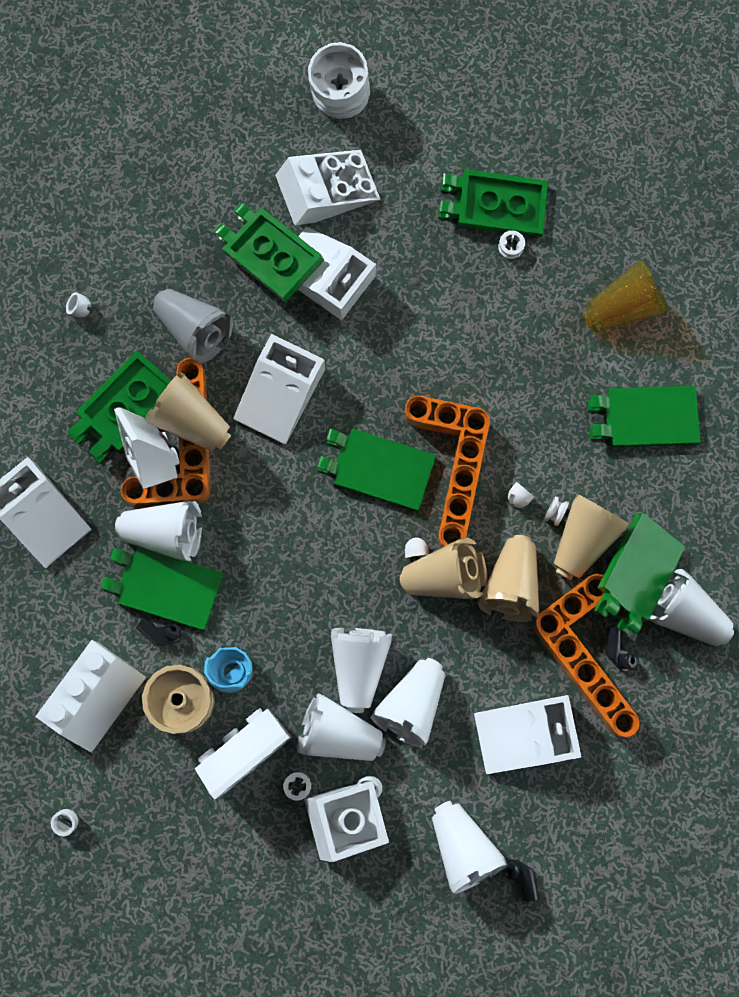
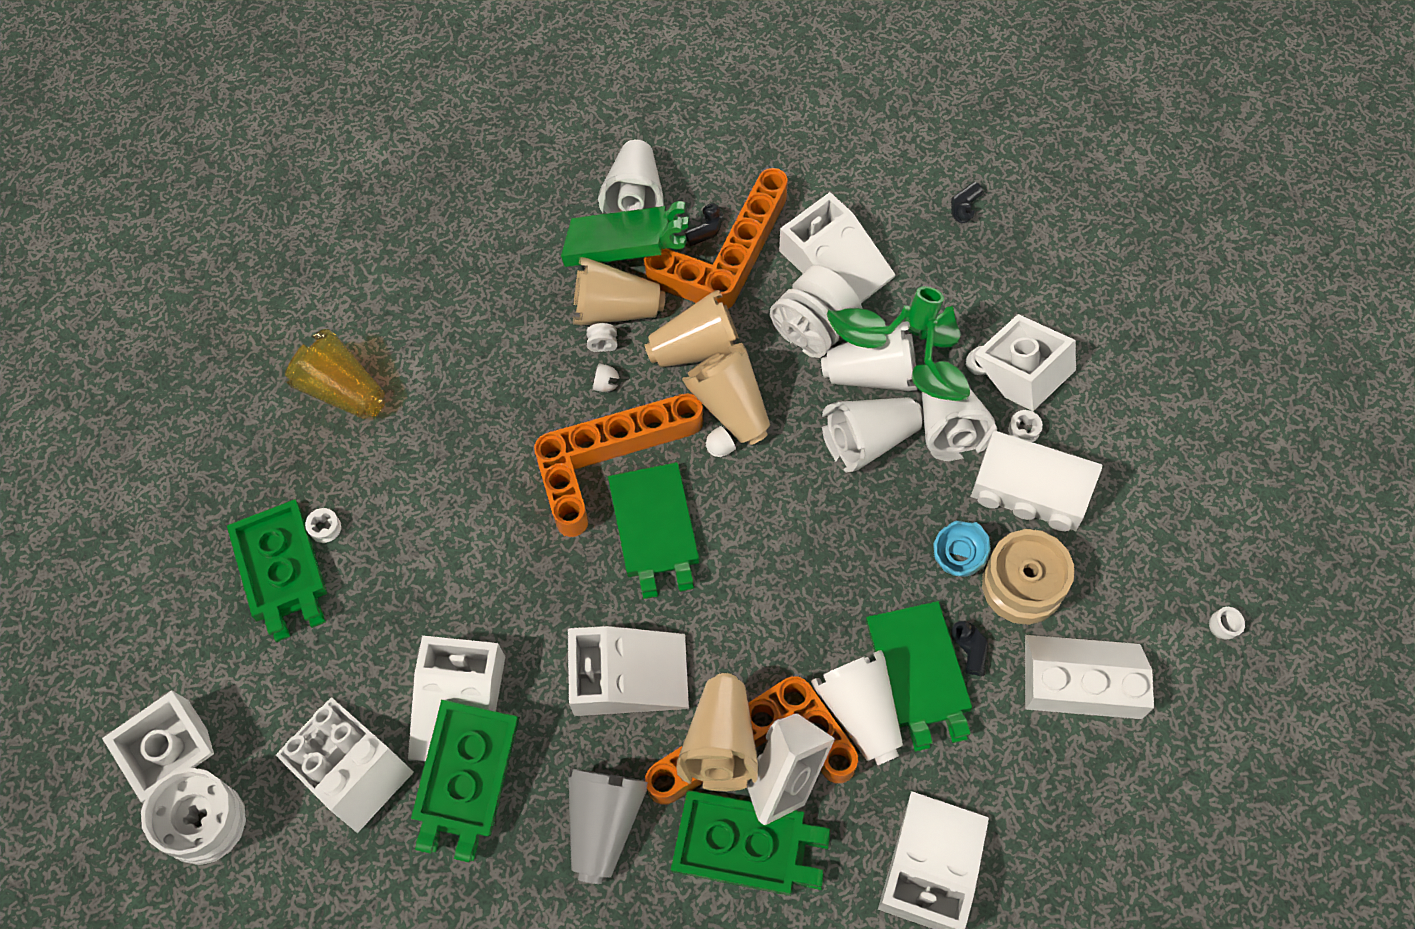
camera: 115 degrees left, 15 degrees down
(399, 79) = (158, 742): none -> white slope
(436, 698) = (869, 331): none -> green plant
(464, 848) = (977, 249): white cone -> none
(479, 680) = (803, 310): none -> white wheel
(647, 416) = (455, 309): green tile -> none

